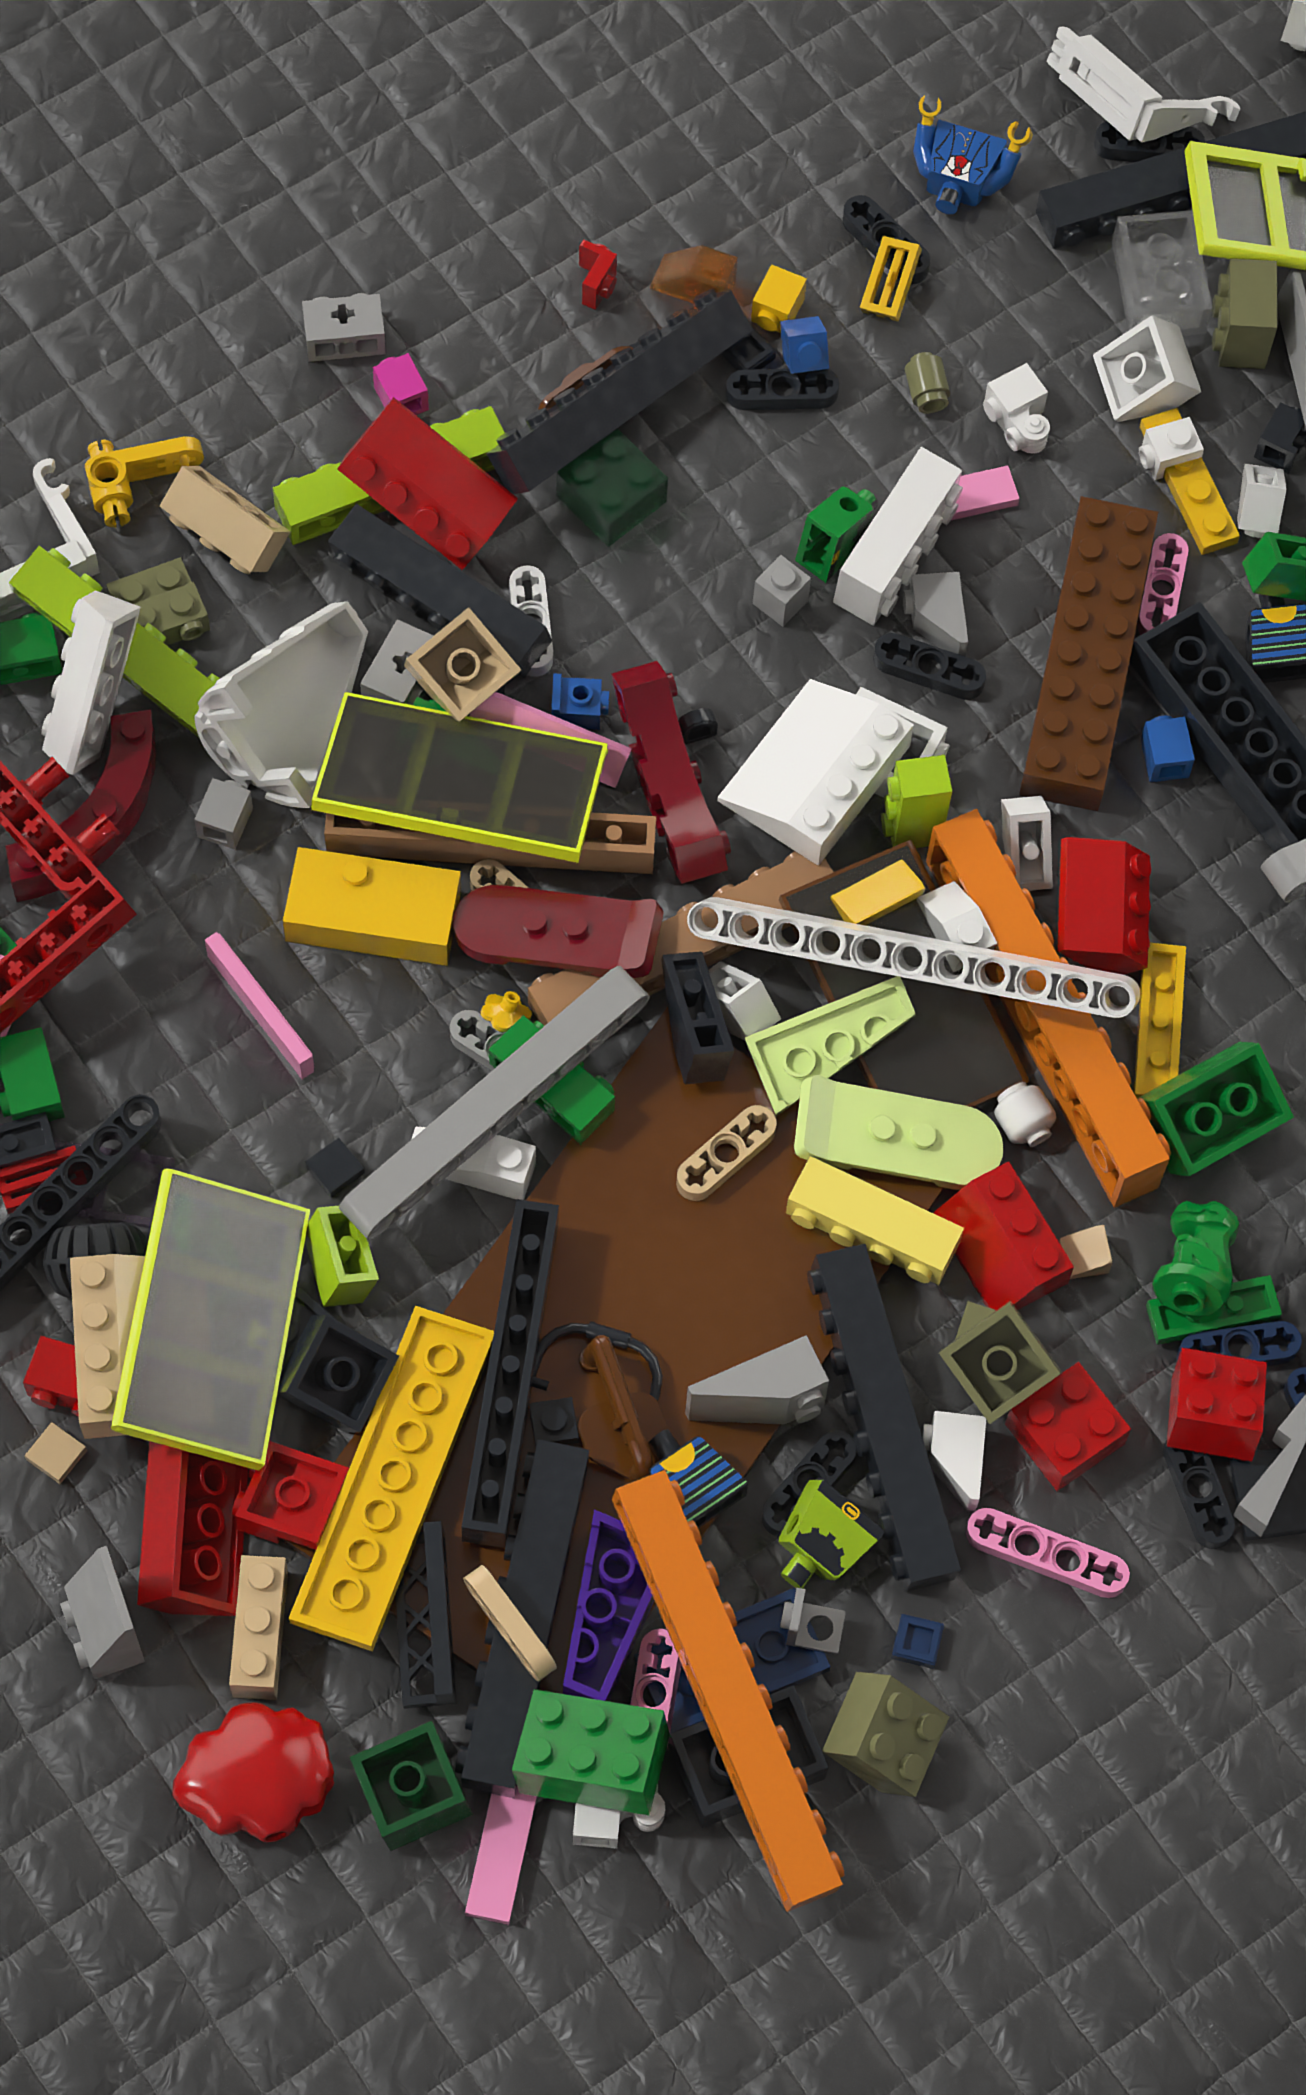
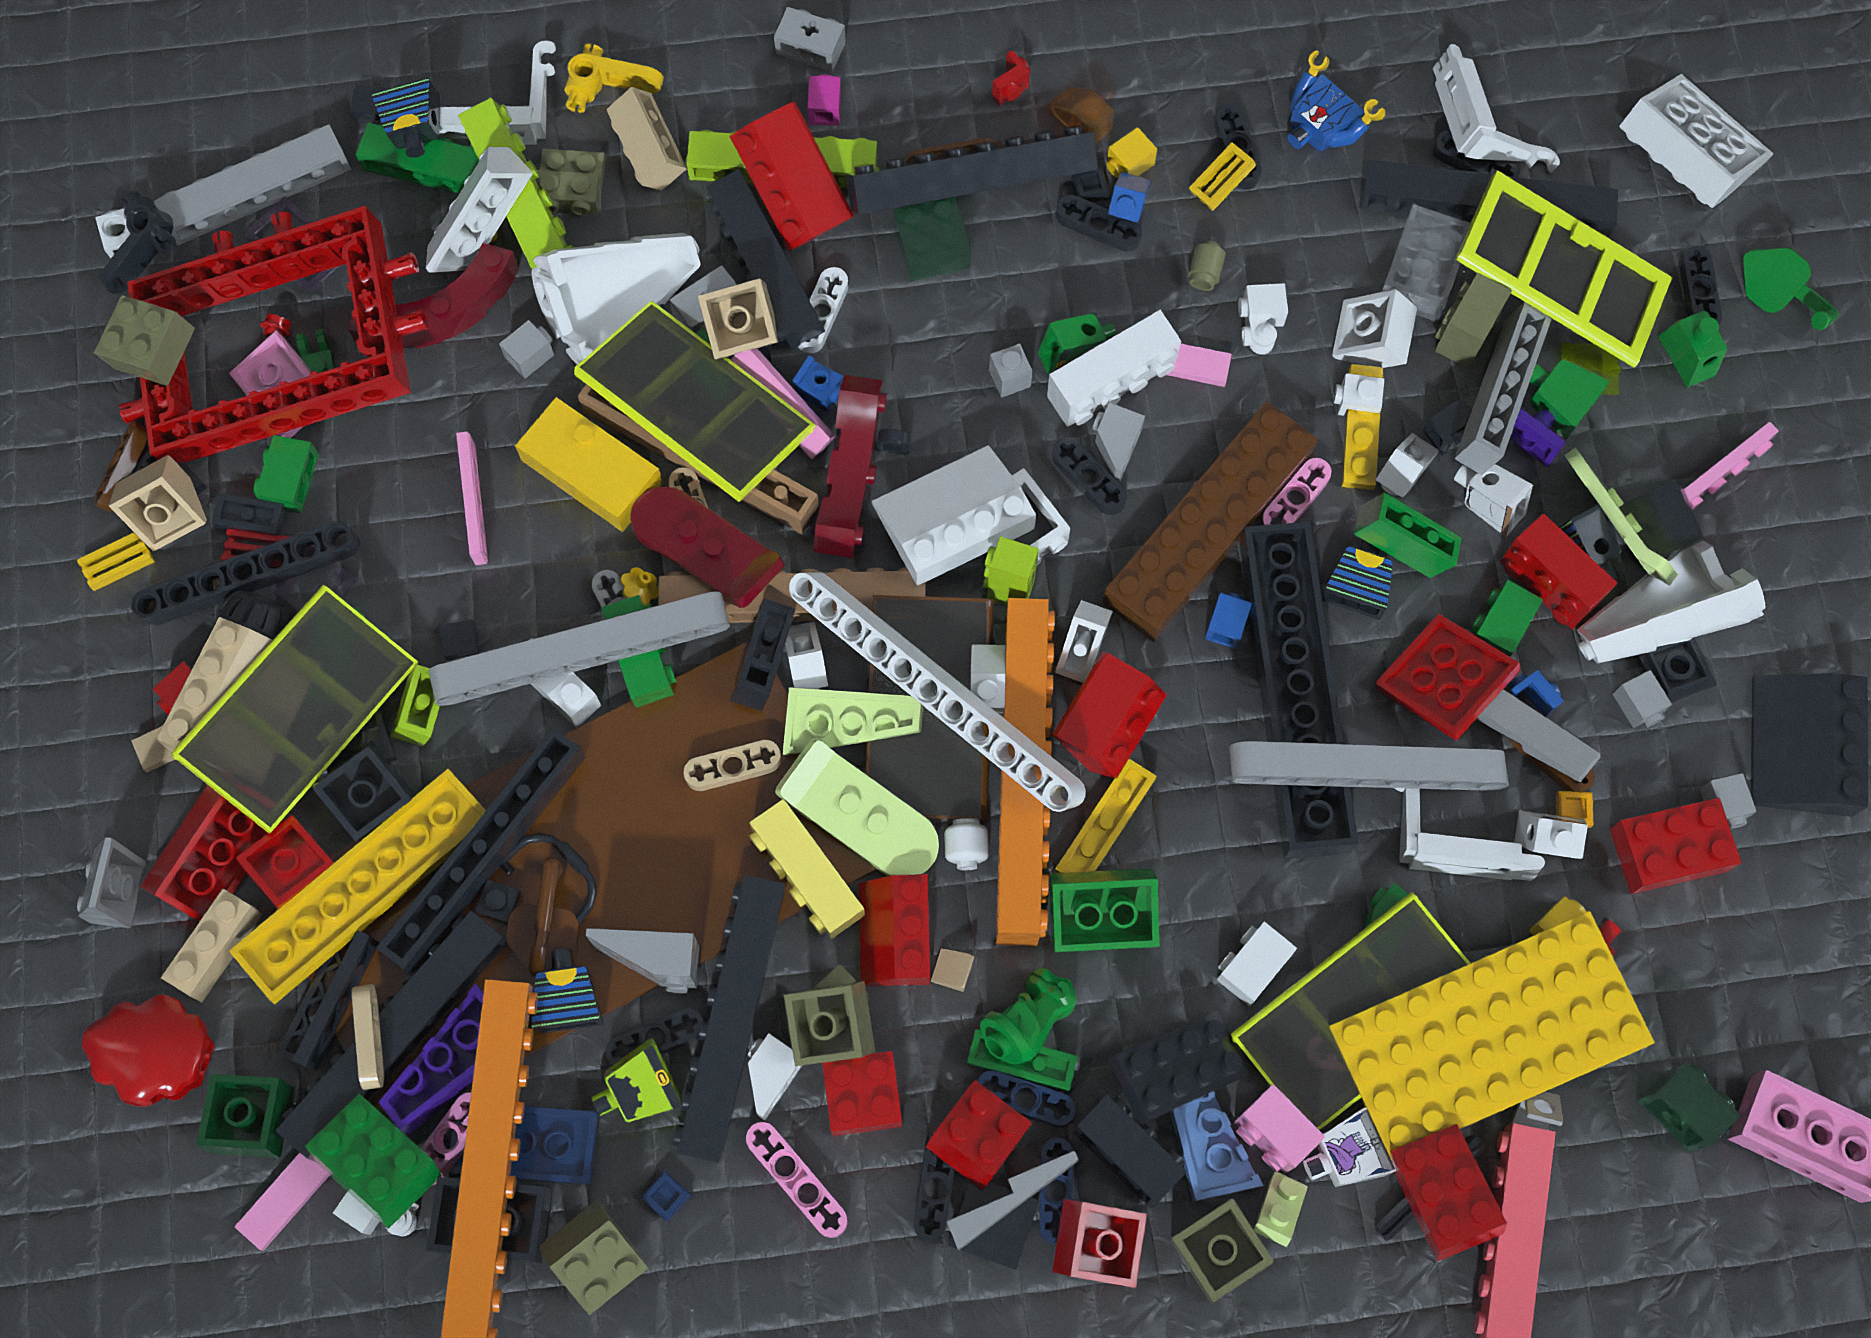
camera: 30 degrees right, 5 degrees up
(798, 1615) = (580, 1136): light grey bracket -> none
(878, 894) = (942, 628): yellow slope -> none

